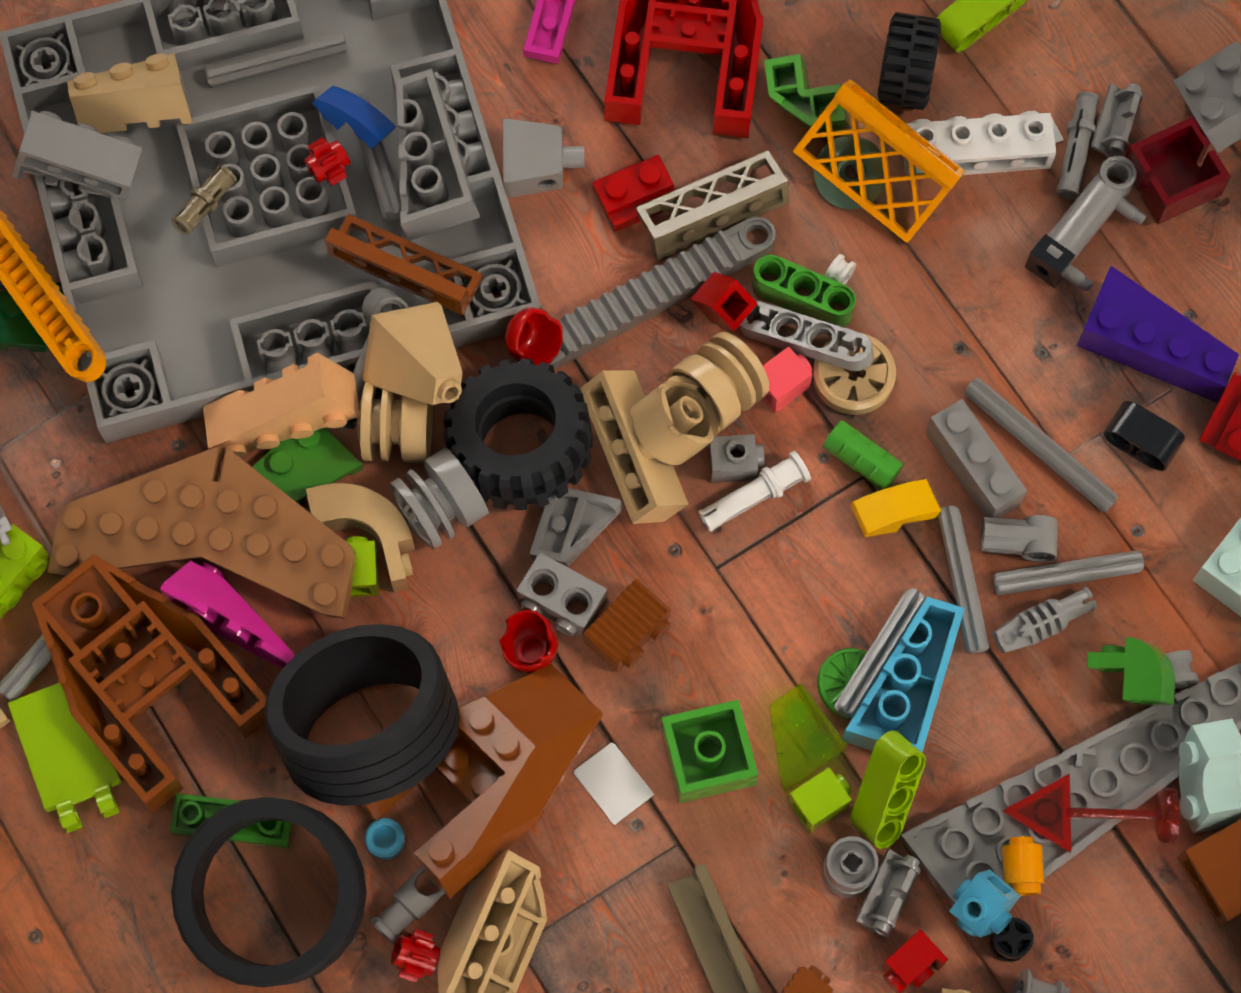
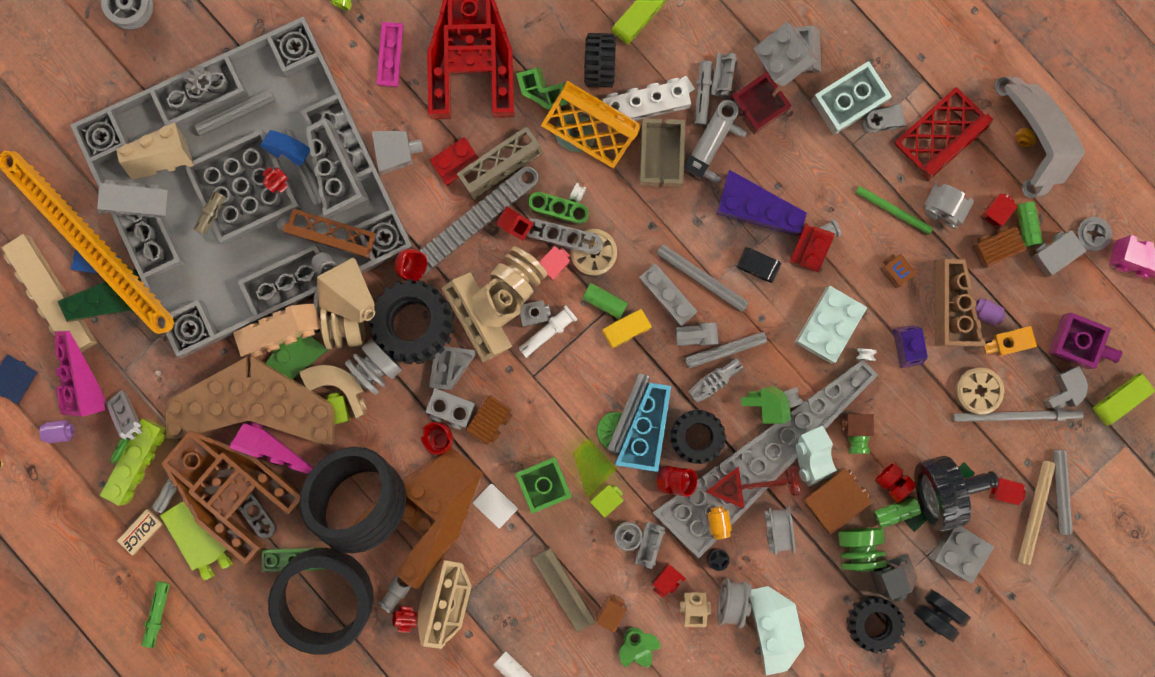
camera: 10 degrees left, 15 degrees up
(197, 743) = (262, 511): none -> dark grey beam
(384, 839) = (378, 556): medium azure tile -> none
(888, 789) = (642, 493): lime beam -> none
(955, 781) = (676, 481): none -> red wheel
(963, 579) = (669, 363): light grey axle -> none
(984, 904) = (701, 548): medium azure brick -> none
(996, 226) = (662, 153): none -> dark tan piece
(1017, 684) = (711, 450): none -> black tyre
(1136, 898) = (780, 530): none -> light grey wheel

